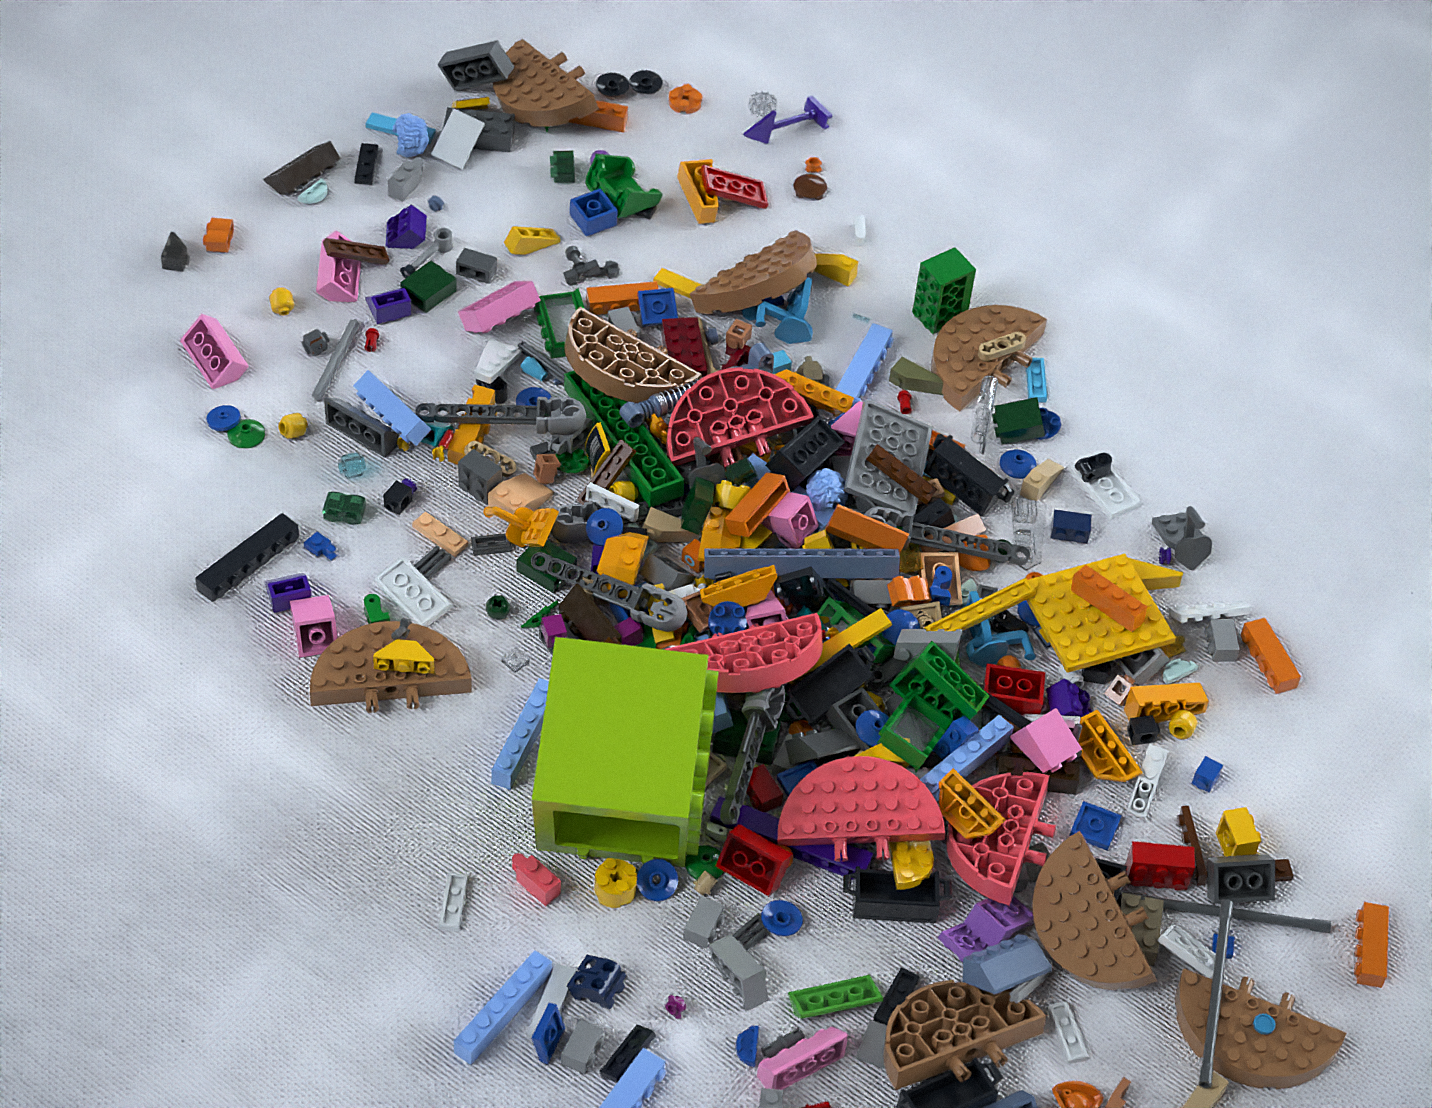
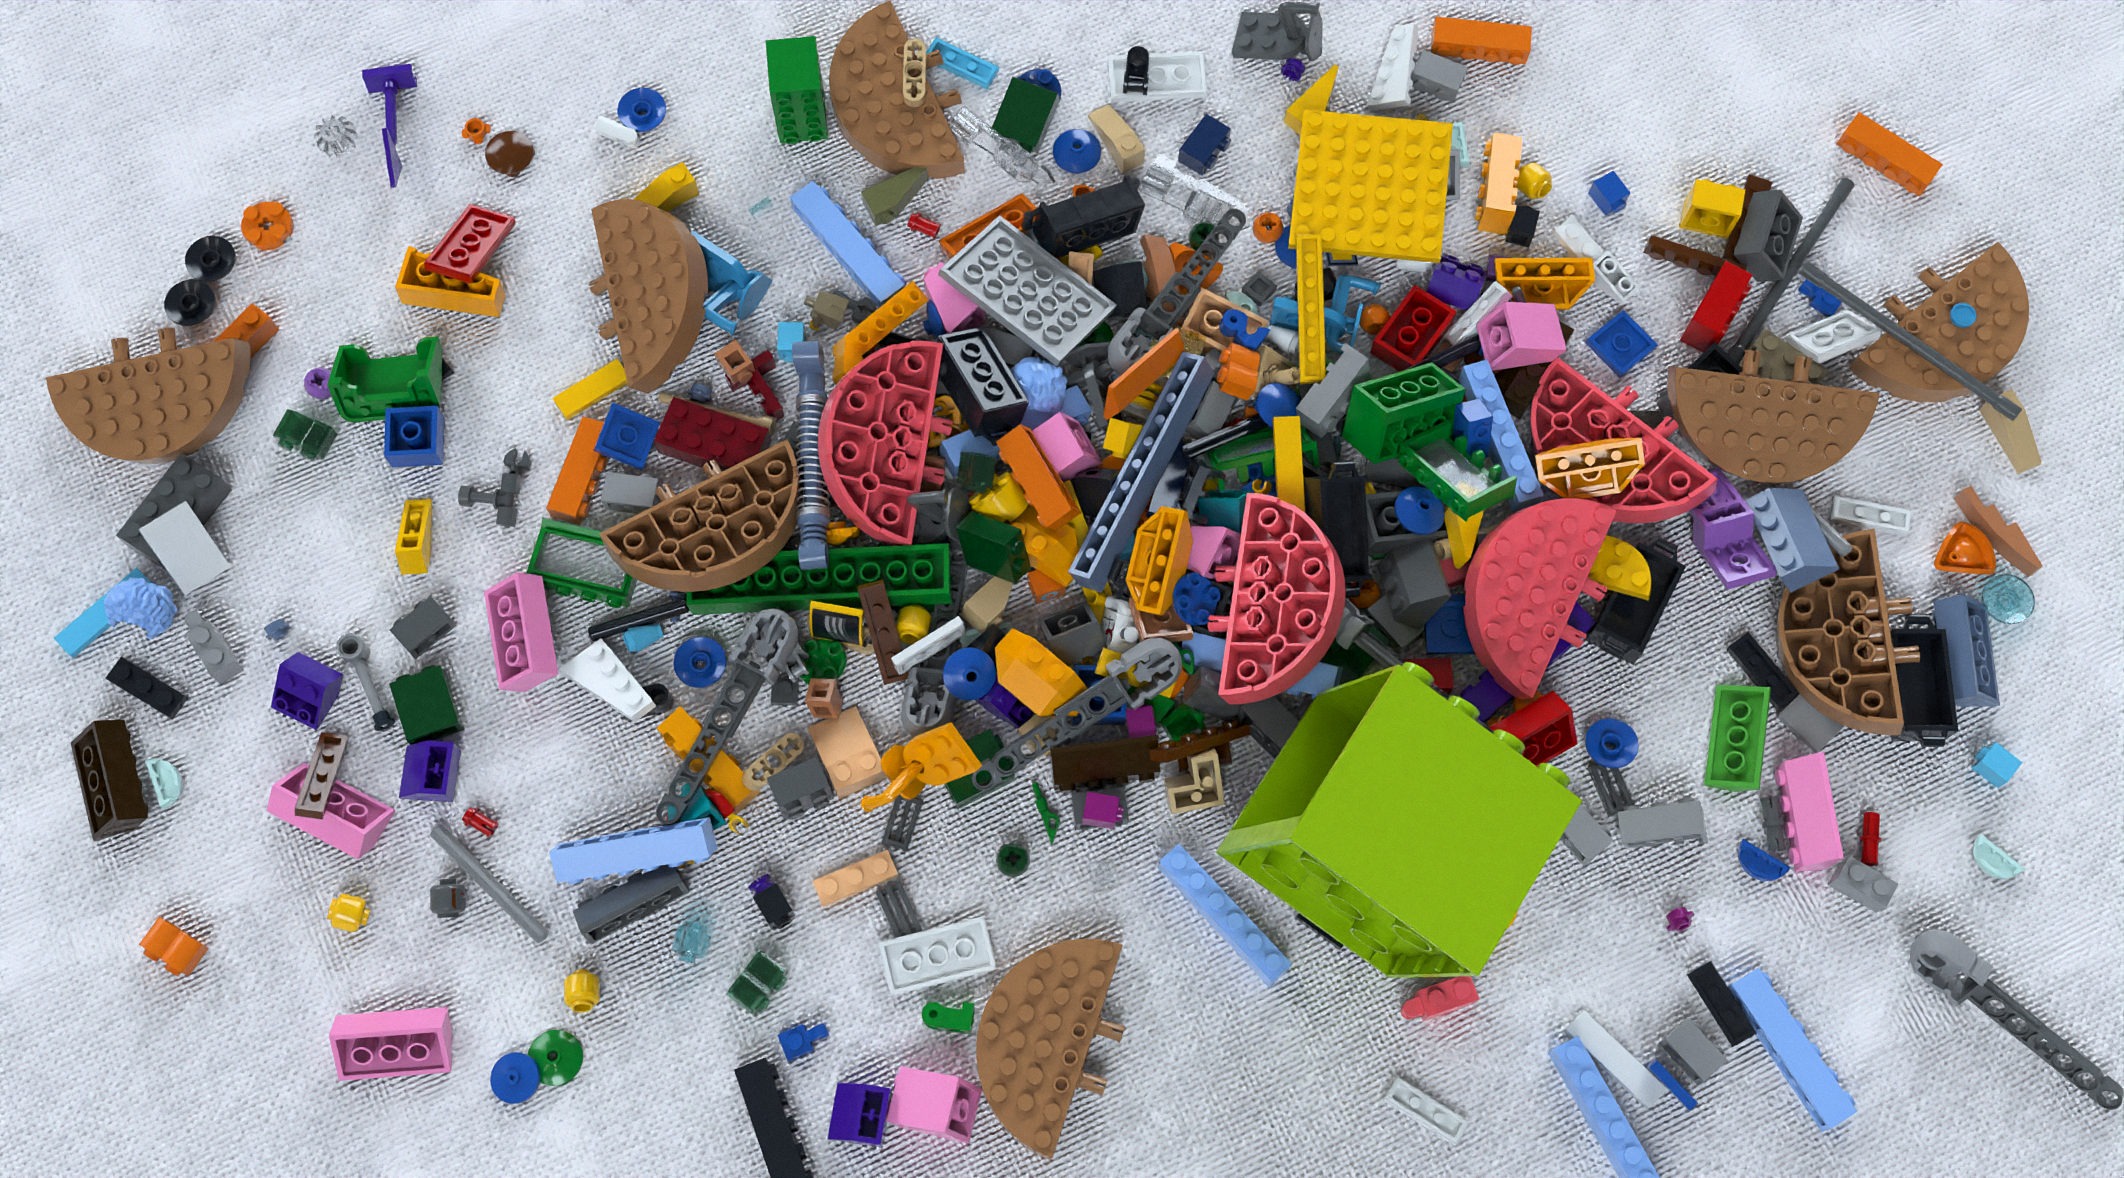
camera: 60 degrees left, 20 degrees up
(174, 254) = (176, 1023): clear smoke slope -> none
(403, 631) = (1024, 1002): dark grey bar -> none
(404, 657) = (1065, 1016): yellow slope -> none
(472, 104) = (124, 501): yellow slope -> none
(475, 65) = (67, 462): dark grey brick -> none
(597, 982) = (1630, 987): dark blue hips -> none
(883, 233) = (640, 101): none -> blue dish
(901, 474) = (1060, 288): reddish brown plate -> none
(1108, 598) = (1376, 162): orange brick -> none
(1115, 692) = (1470, 221): brick -> none

